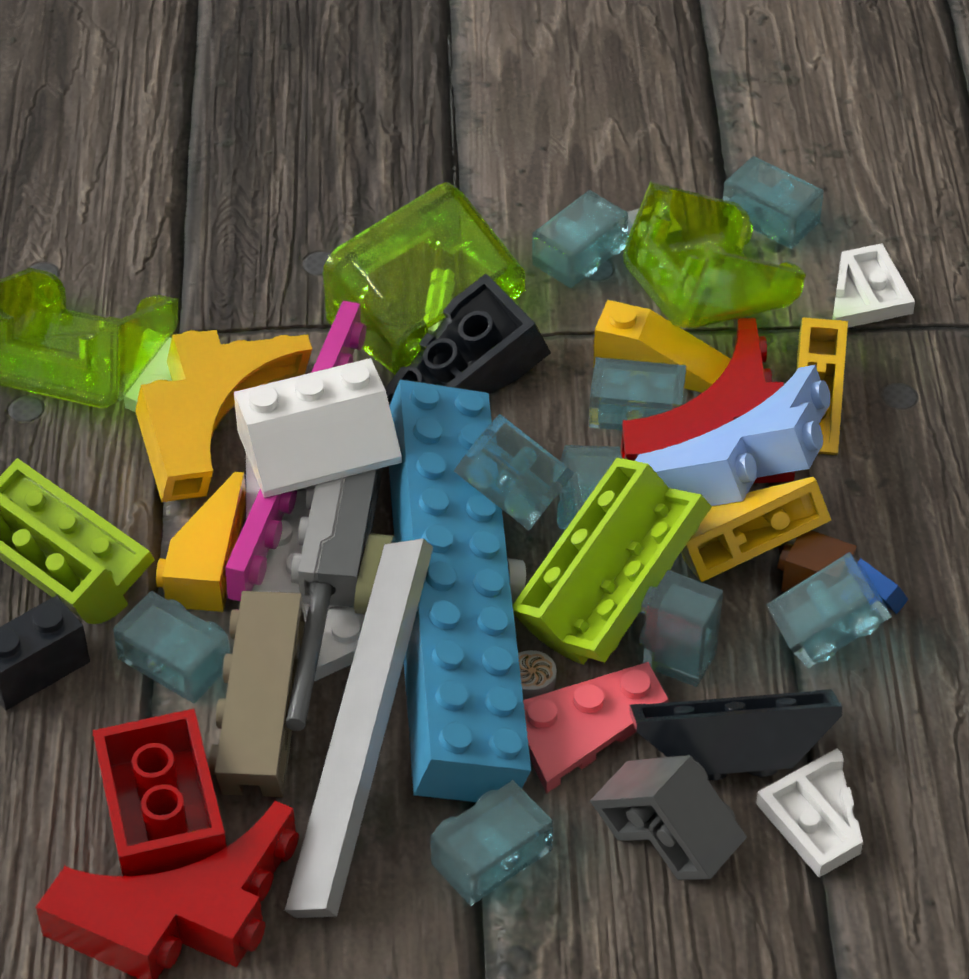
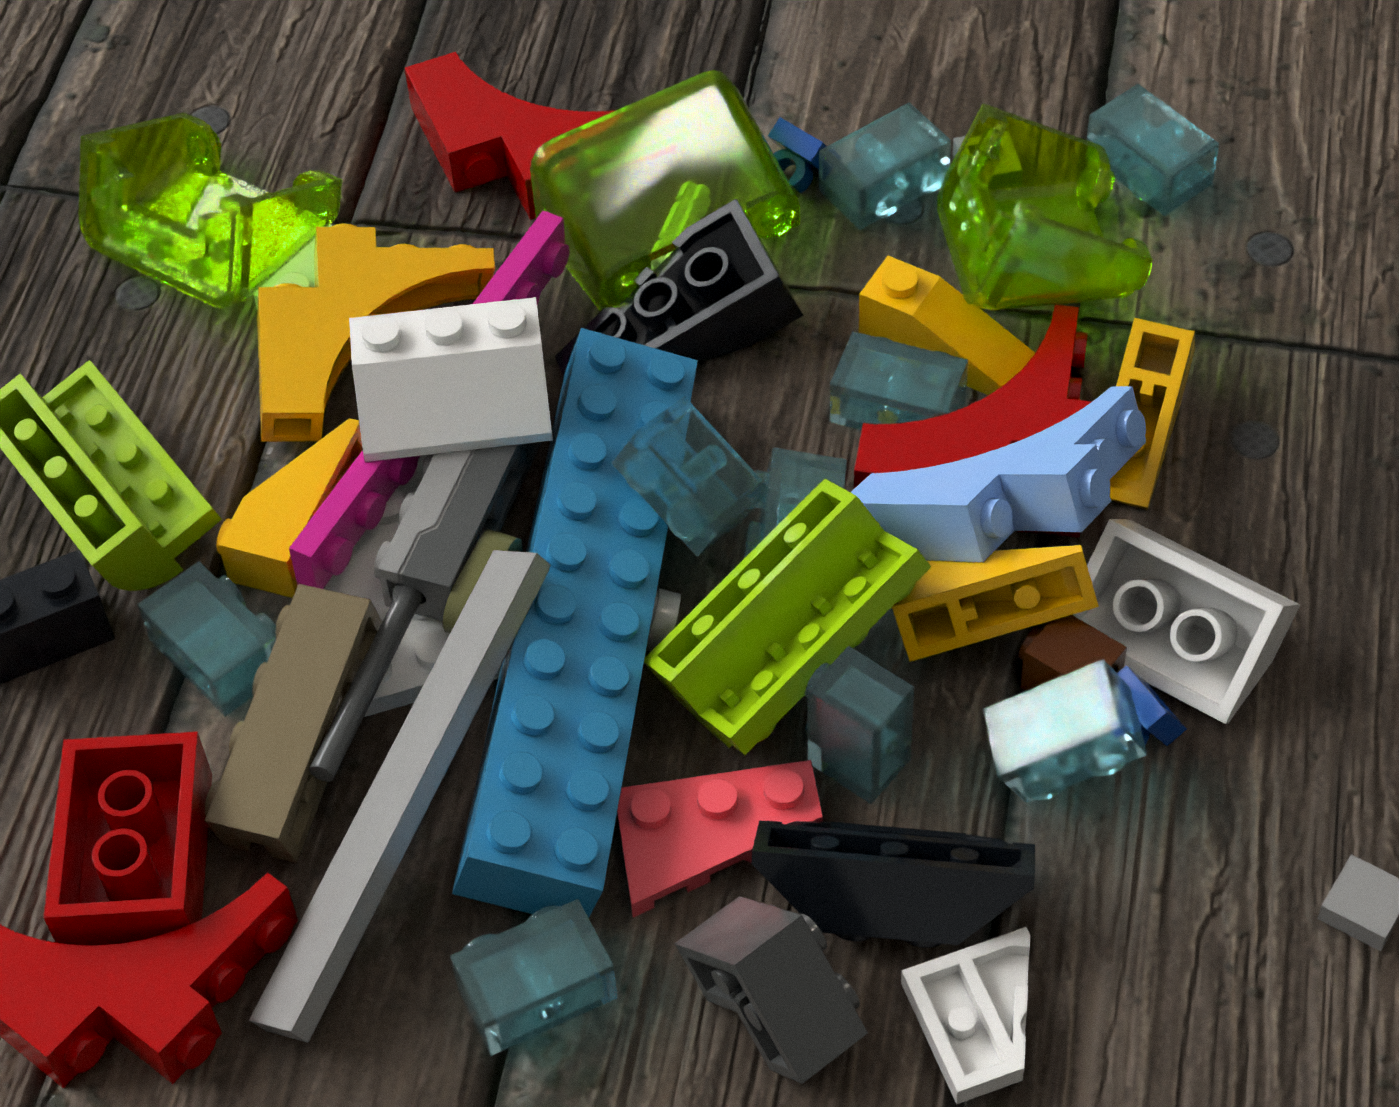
camera: 15 degrees right, 5 degrees up
(270, 253) = (481, 130): none -> red arch
(514, 235) = (796, 149): none -> tile
(536, 673) = (657, 751): tile -> none
(870, 288) = (1249, 286): white wing -> none
(893, 523) = (1184, 618): none -> white slope

